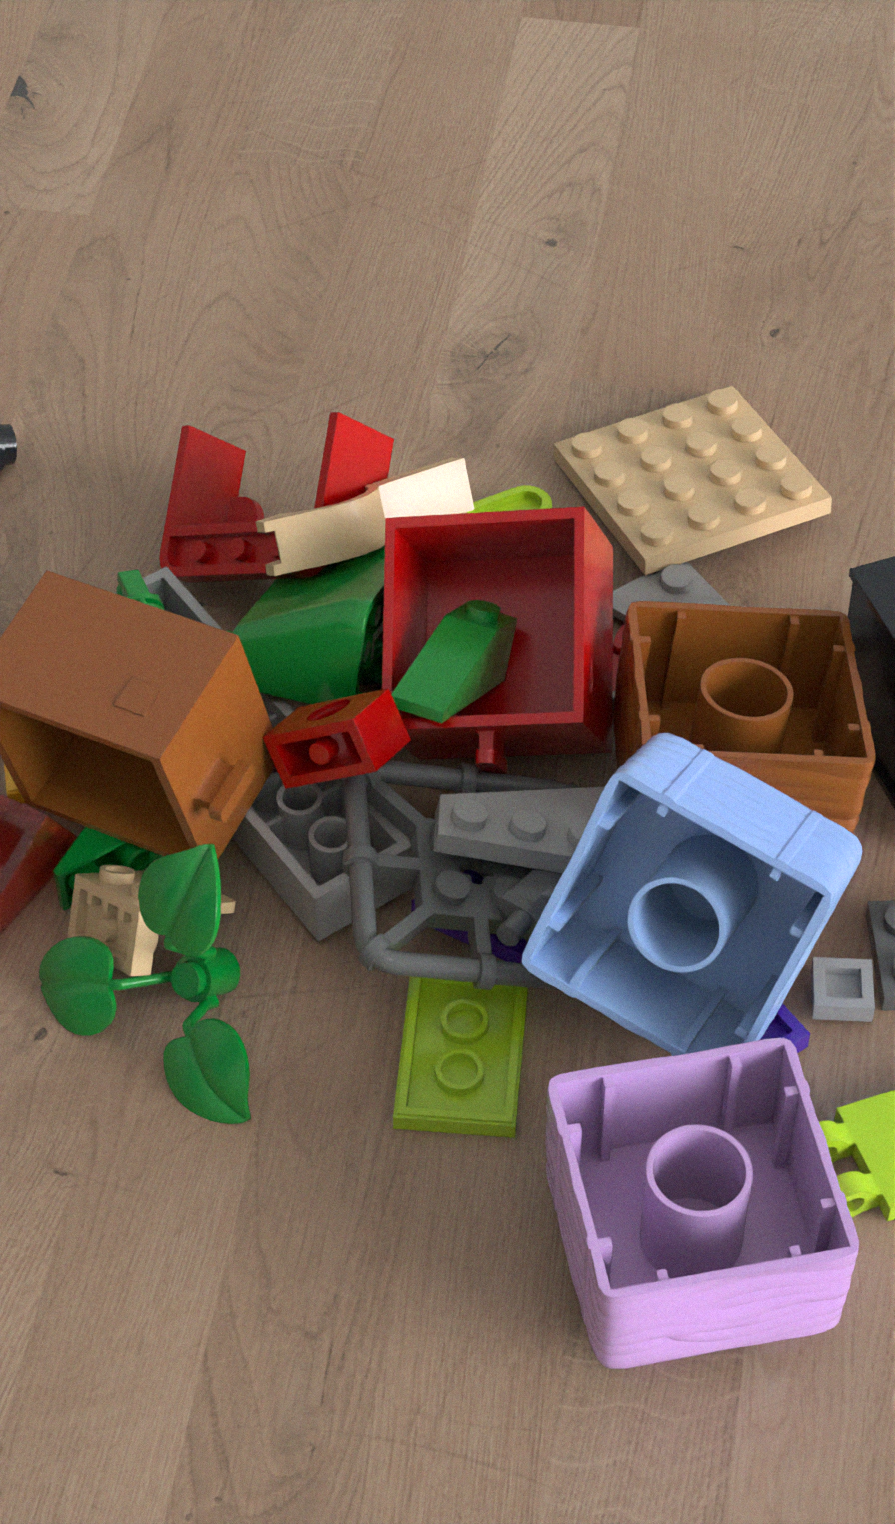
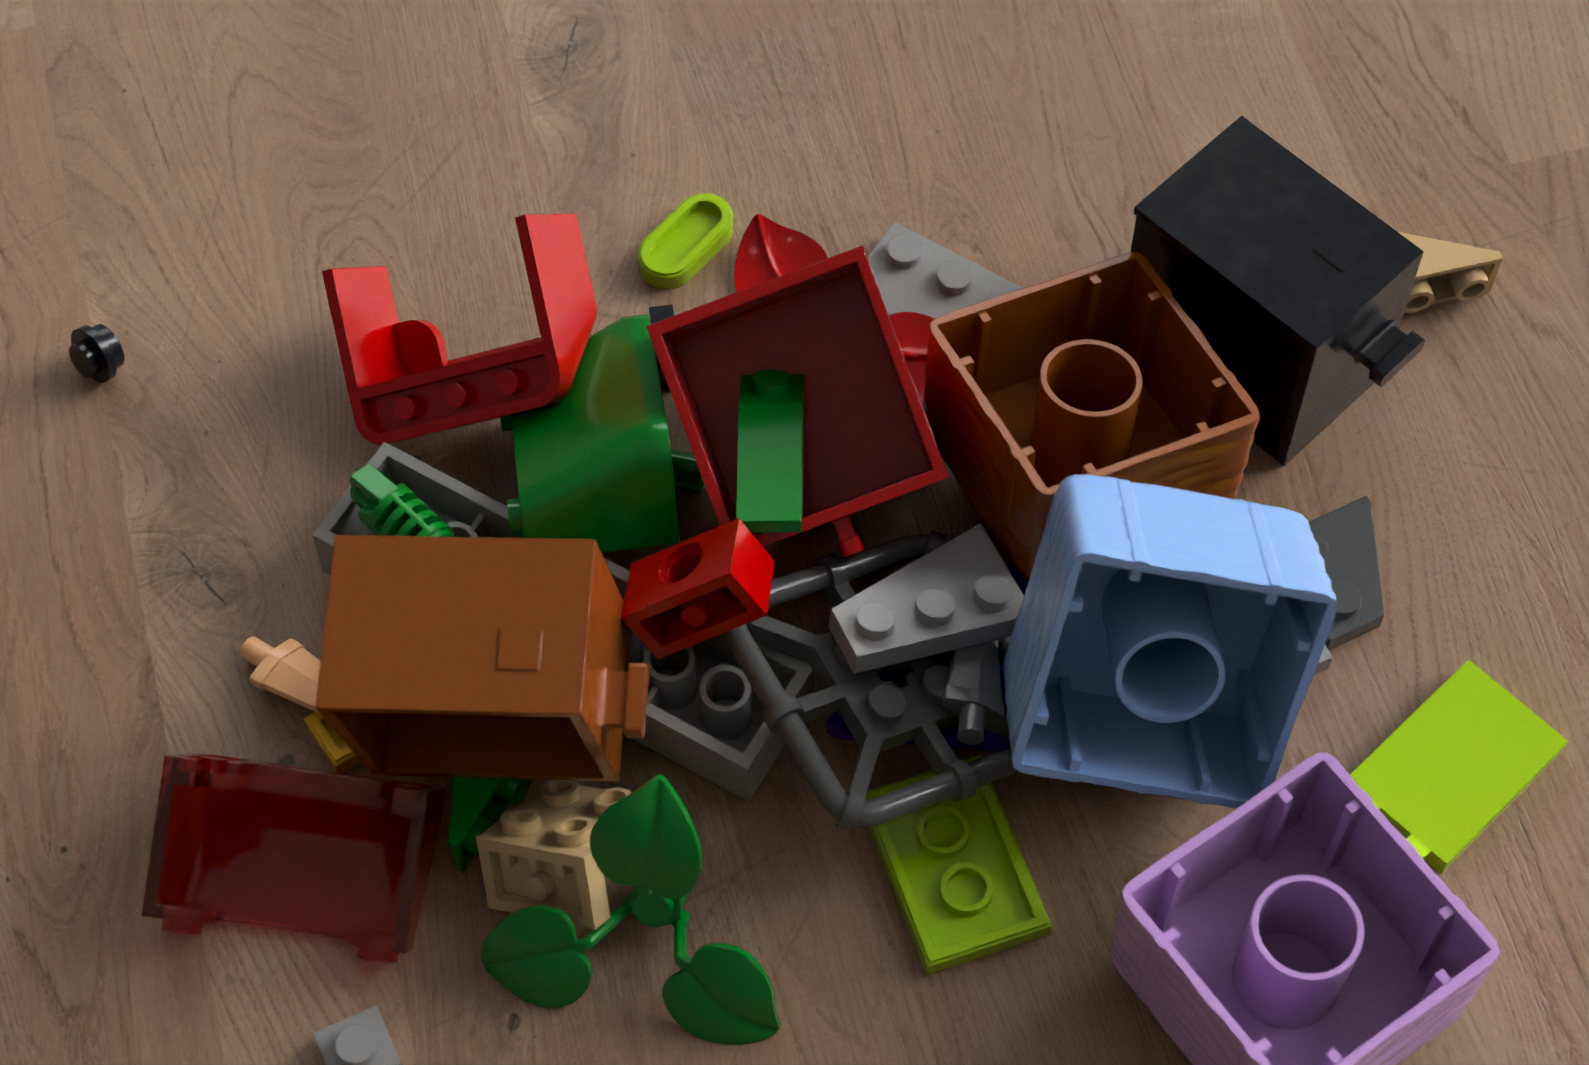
camera: 25 degrees left, 10 degrees up
(358, 524) = (593, 337): tan piece -> none
(691, 479) = (858, 128): tan plate -> none

